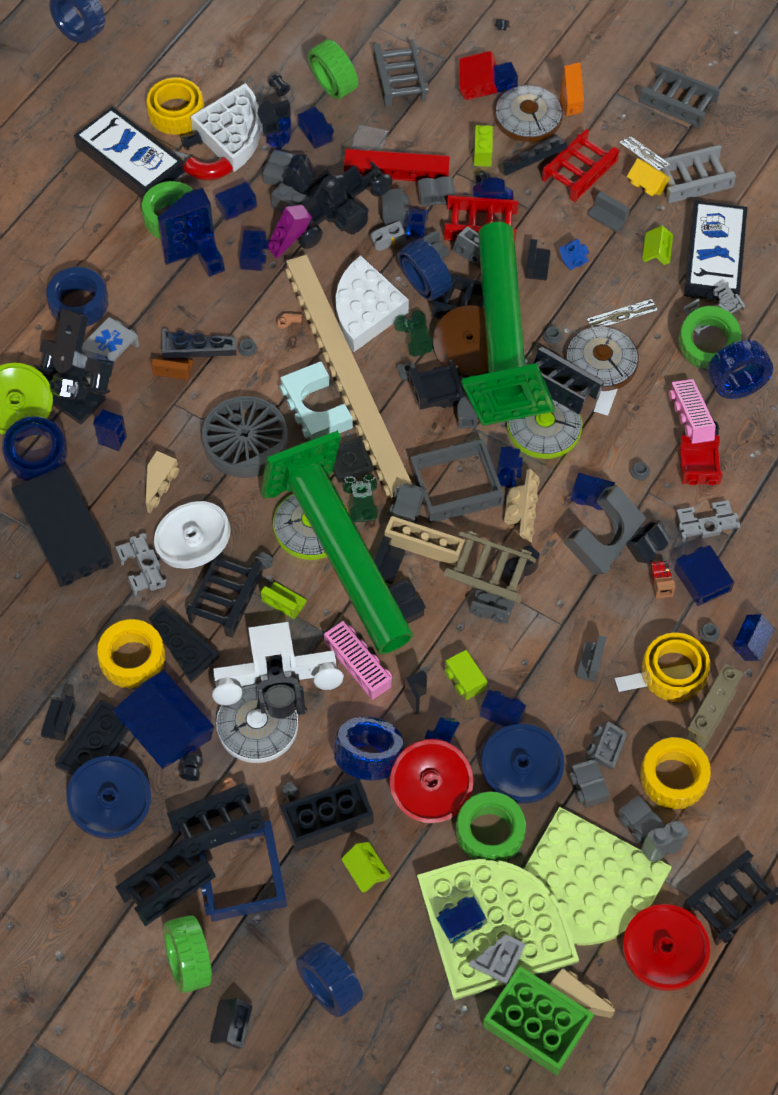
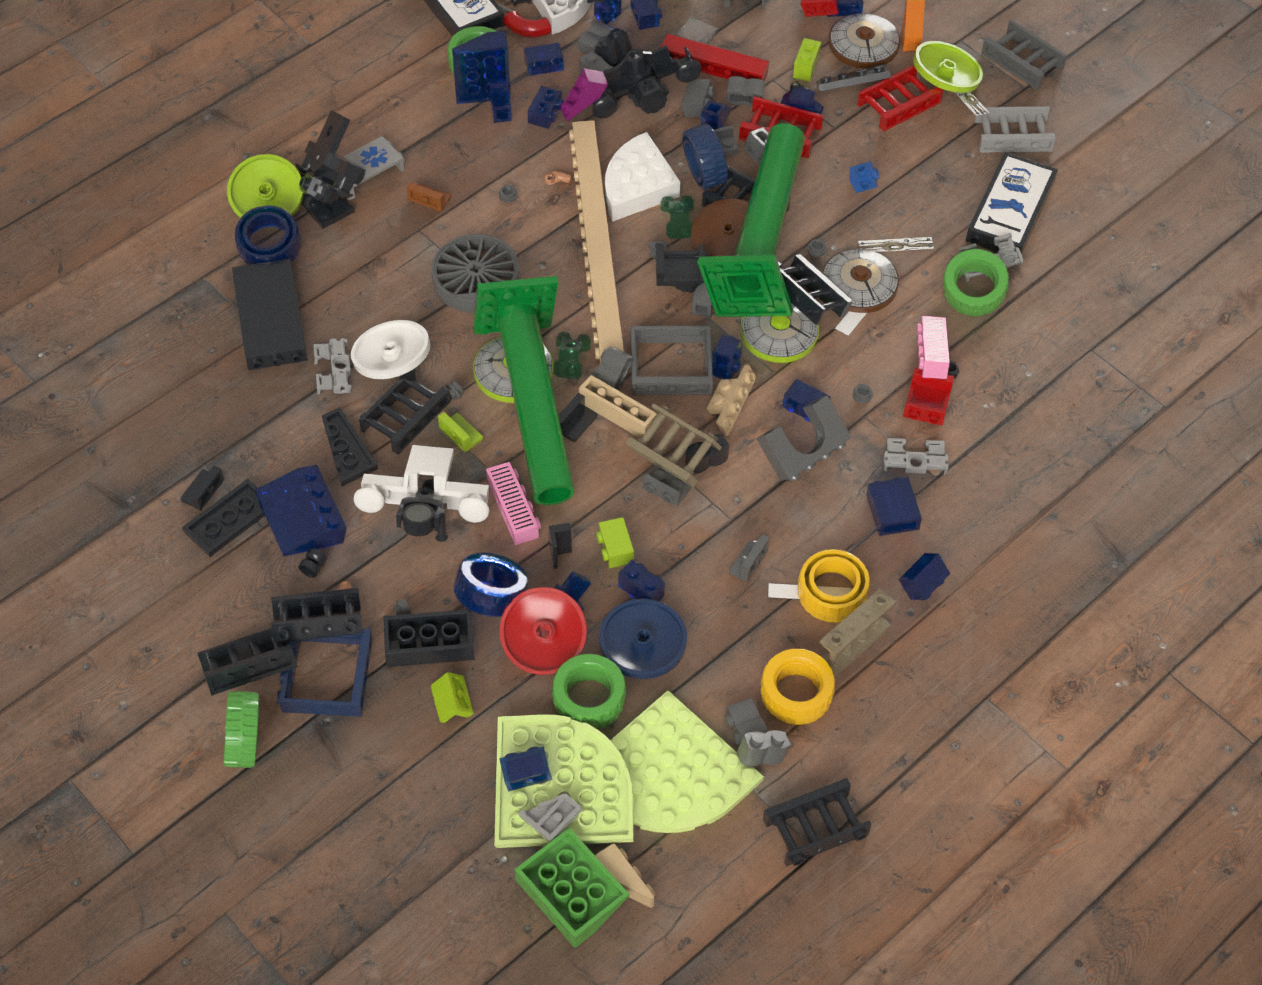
camera: 15 degrees right, 5 degrees down
(73, 280) = (362, 97): dark blue tyre -> none
(108, 797) = (221, 569): dark blue dish -> none
(110, 429) = (345, 236): clear blue brick -> none
(127, 632) = (289, 424): yellow tyre -> none
(159, 475) = (378, 290): tan slope -> none
(184, 345) = (460, 181): black wing -> none
(231, 1022) = (266, 810): black panel -> none
(254, 735) = (389, 549): dish -> none
(315, 424) = (550, 237): light aqua arch -> none
(329, 979) = (372, 789): dark blue tyre -> none
(352, 460) = (572, 317): pearl dark grey plate -> none
(388, 236) = (681, 121): light grey leg -> none
(407, 601) = (580, 460): black brick -> none
(537, 262) = (824, 177): black panel -> none
(589, 782) = (706, 675): dark grey brick -> none
(606, 744) = (736, 643): dark grey bracket -> none
(609, 212) = (914, 146): dark grey panel -> none
(615, 124) = (948, 66): none -> lime dish
(648, 177) = (965, 122): yellow brick -> none
(649, 541) = (847, 460): black brick -> none
(658, 245) = (954, 187): lime panel -> none
(662, 579) = (849, 500): leg -> none
(666, 947) = (729, 851): red dish -> none
(709, 632) = (881, 562): dark grey plate -> none
(746, 380) = (995, 333): clear blue tyre -> none

